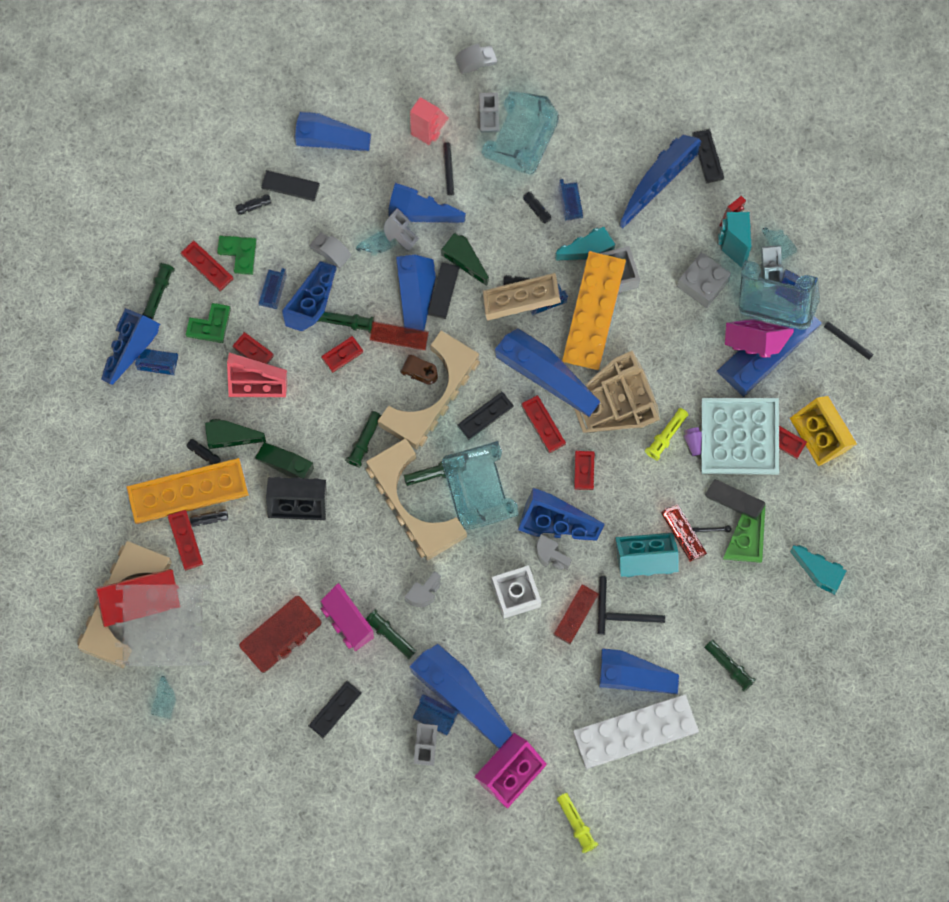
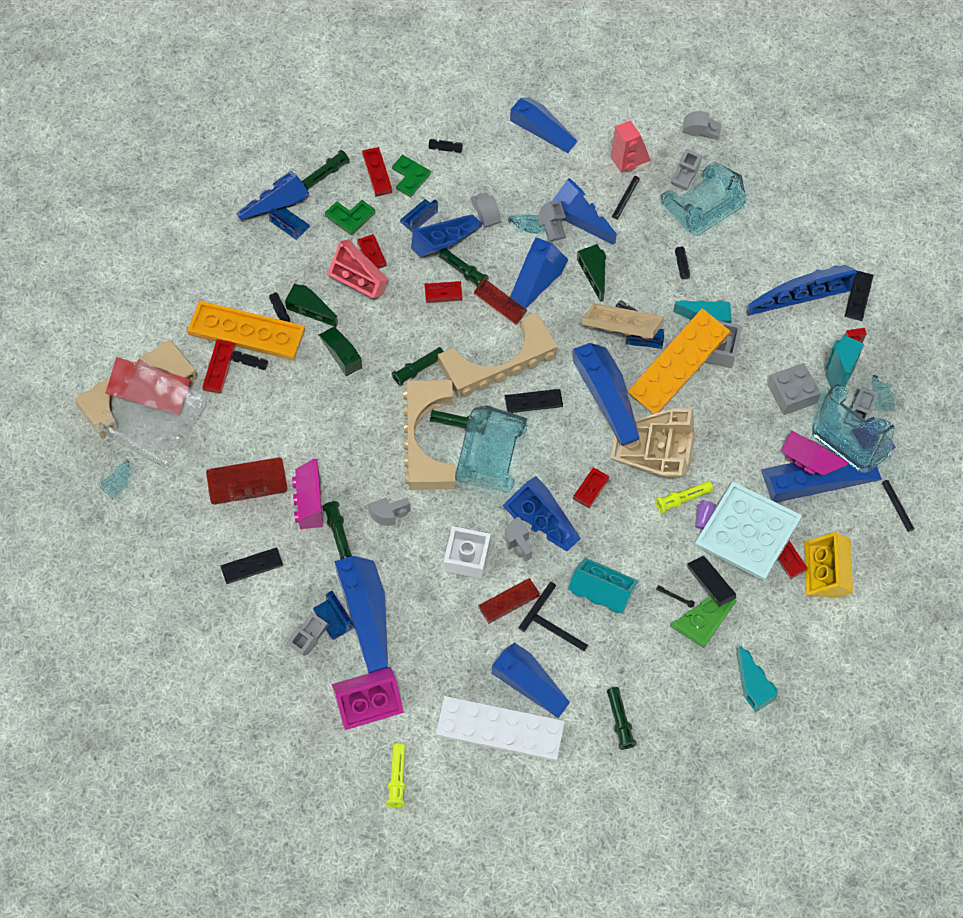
camera: 30 degrees right, 10 degrees down
(290, 185) = (485, 146): black tile -> none
(296, 498) = (329, 380): black slope -> none
(418, 368) = (500, 336): reddish brown piece -> none
(443, 290) = (561, 286): black tile -> none
(543, 424) = (579, 432): red plate -> none
(570, 200) = (714, 271): clear blue panel -> none
(683, 533) = (647, 584): clear red plate -> none

